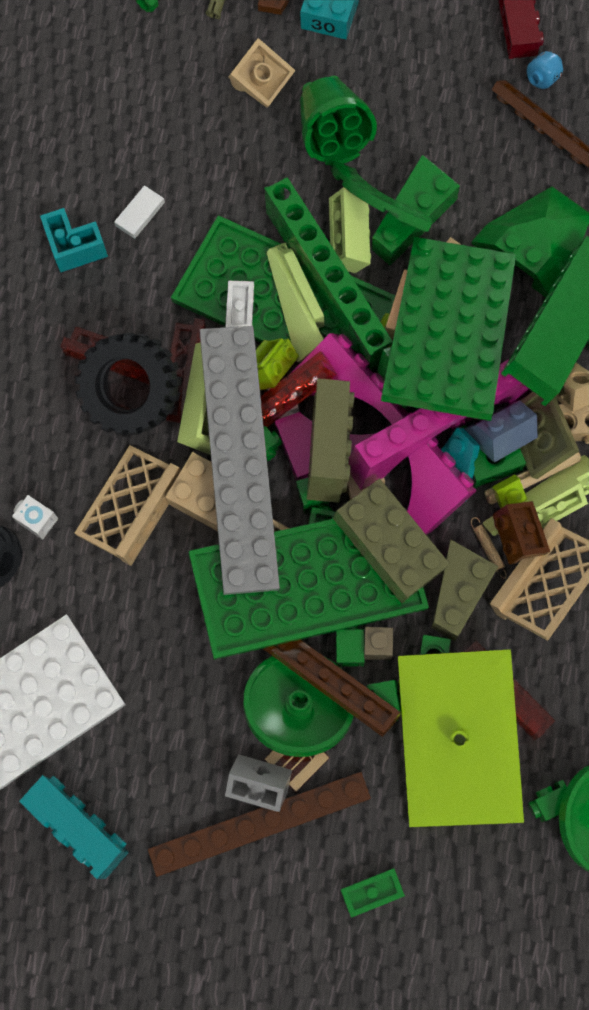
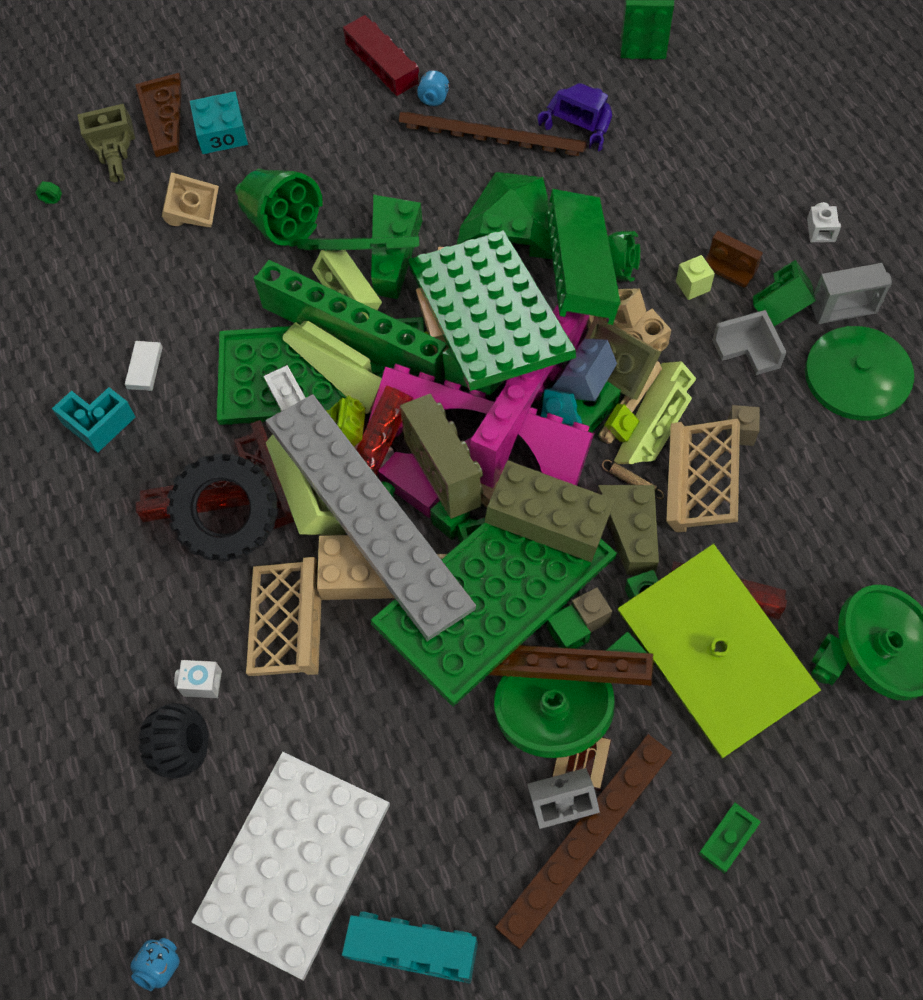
camera: 30 degrees left, 10 degrees down
(520, 531) = (654, 445): reddish brown bracket -> none

